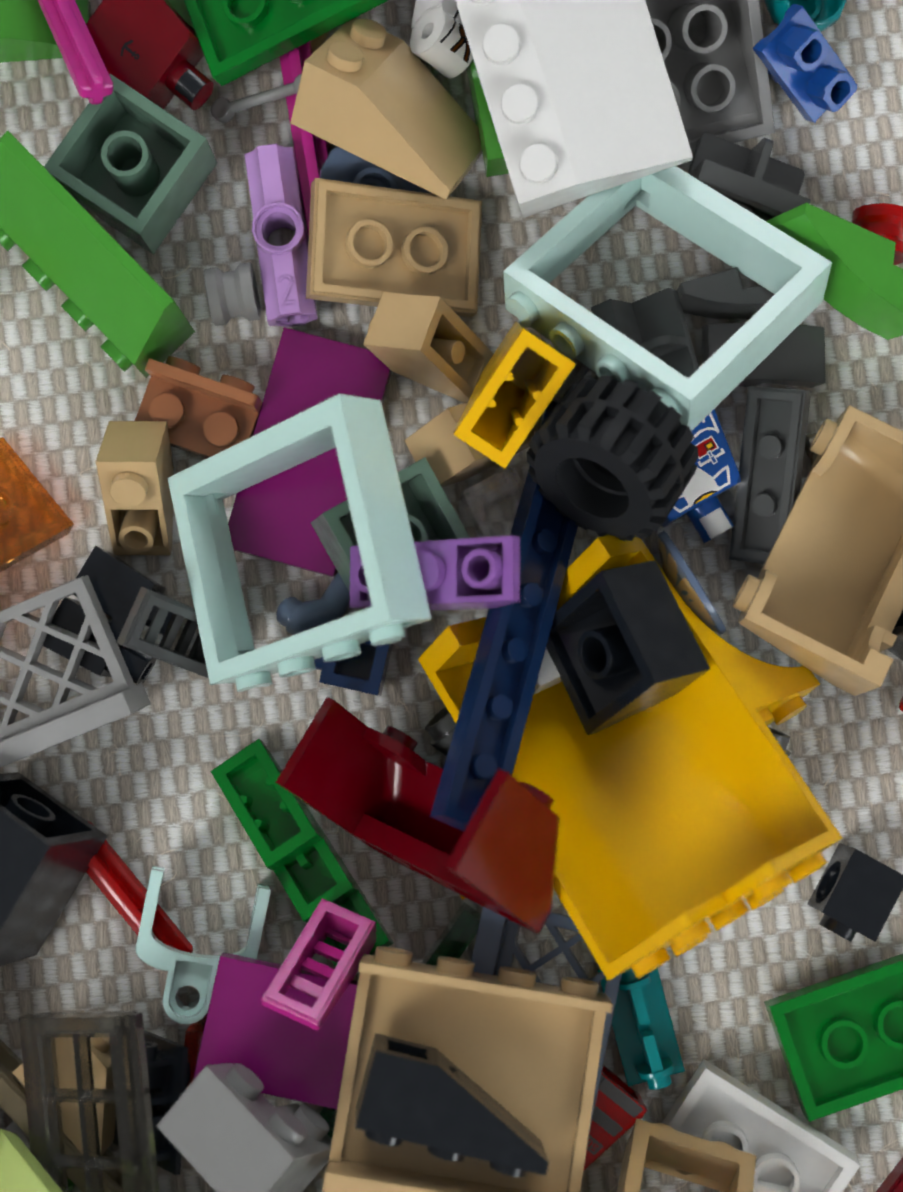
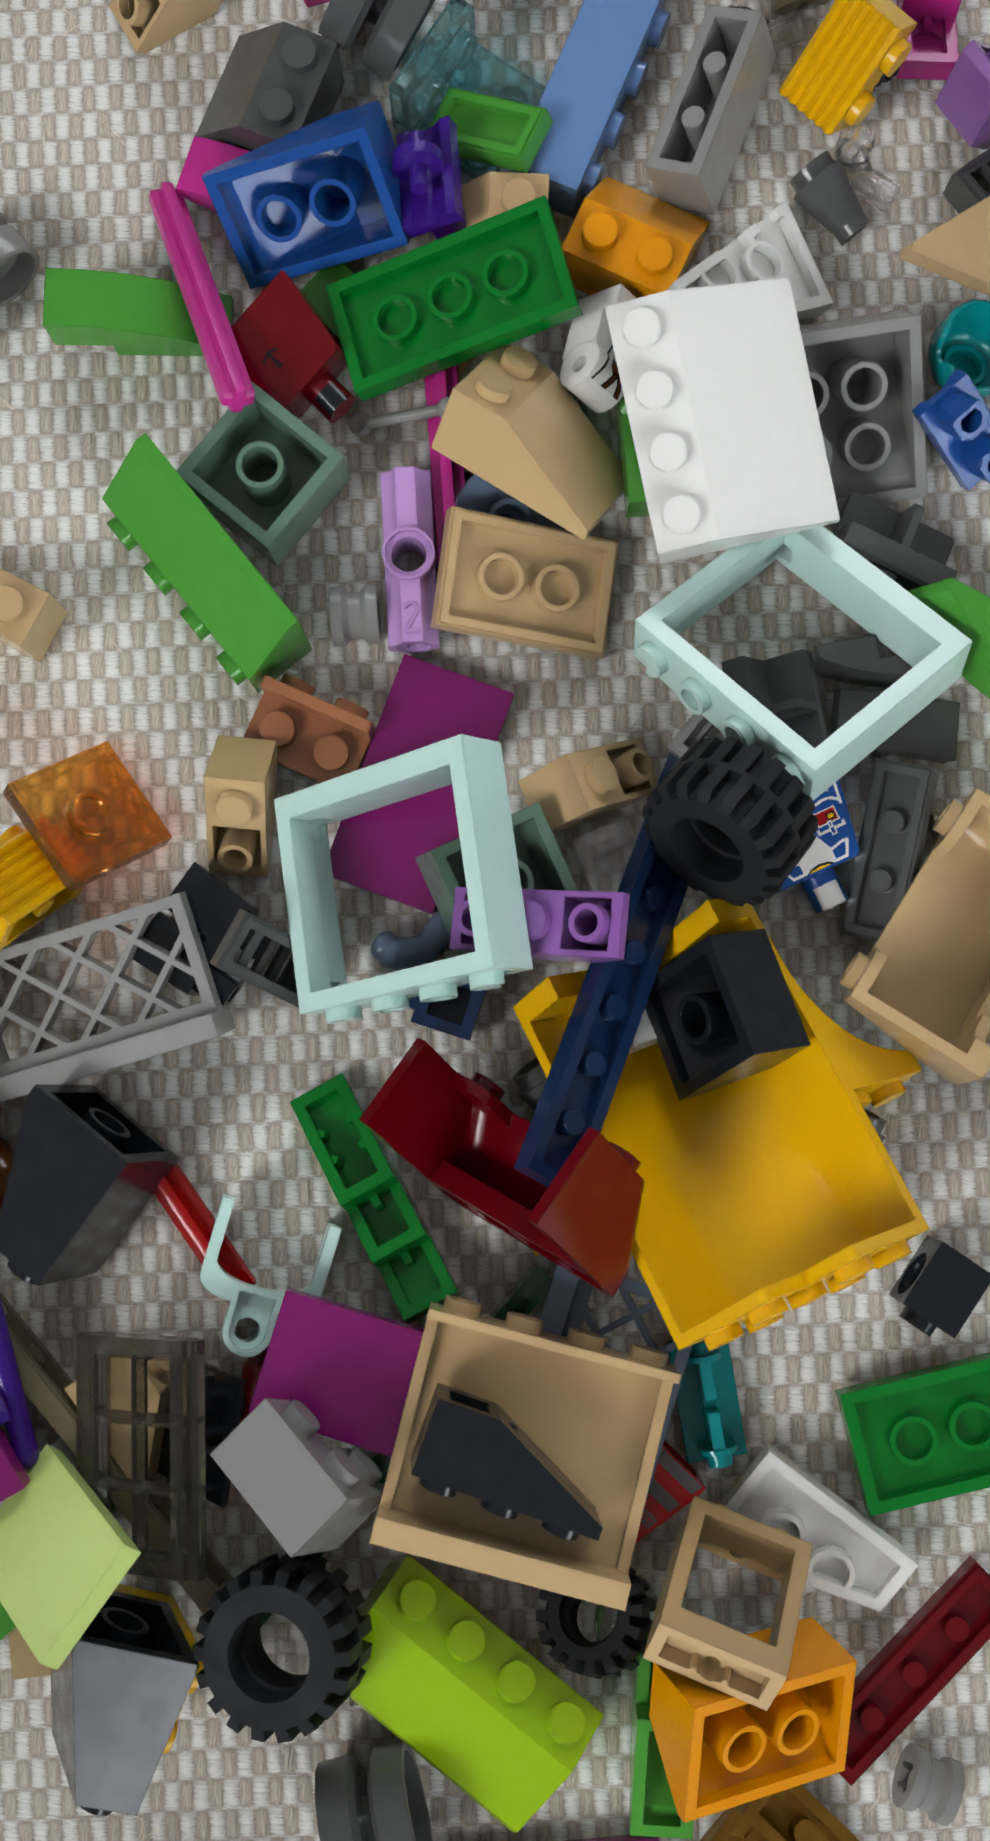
camera: 10 degrees right, 0 degrees up
(331, 922) = (395, 1266): dark pink slope -> none
(427, 343) = (551, 686): tan slope -> none
(512, 394) = (634, 745): yellow slope -> none
(687, 584) = (794, 955): dish -> none

